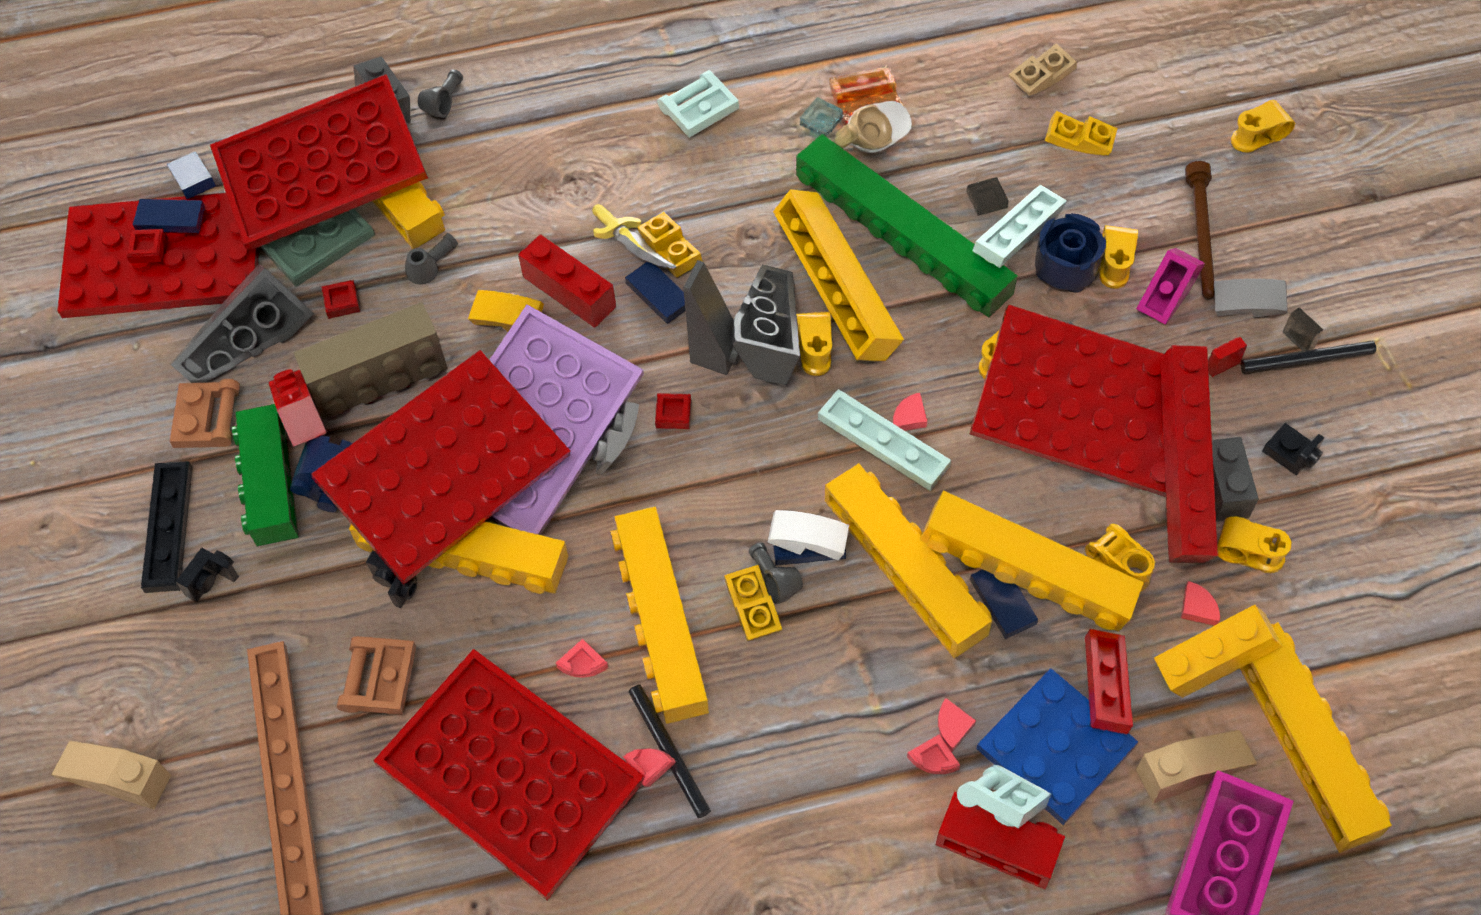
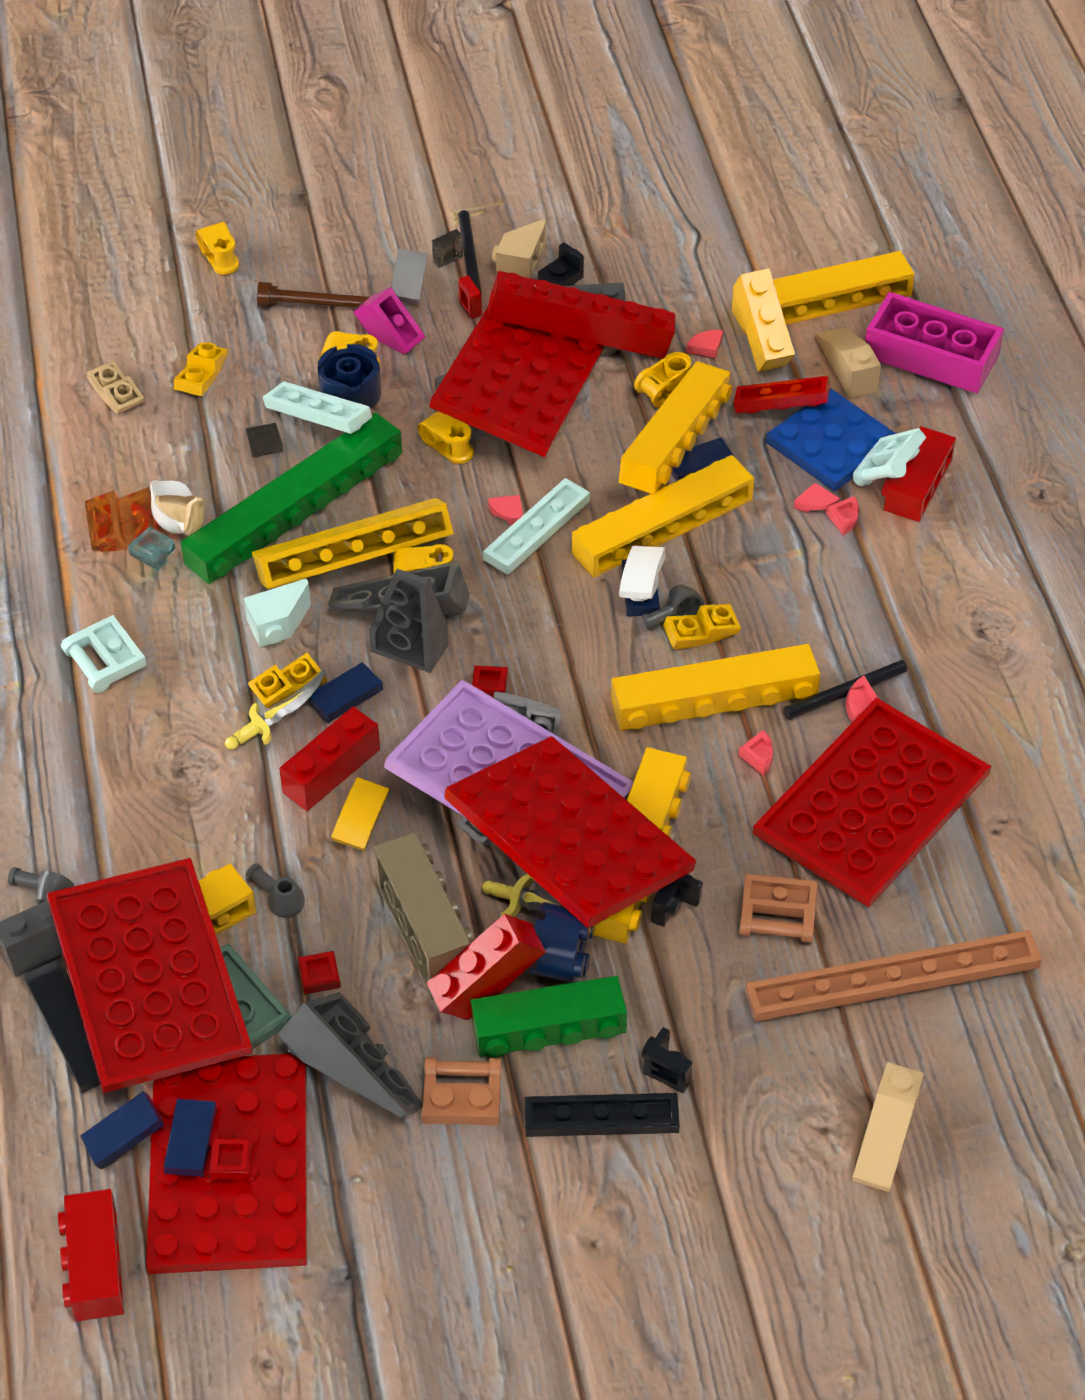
camera: 90 degrees left, 10 degrees down
(82, 171) = (91, 1255): none -> red brick
(748, 225) = (277, 612): none -> light aqua slope
(1251, 543) = (658, 292): yellow piece -> none
(1316, 404) = (521, 249): none -> tan slope

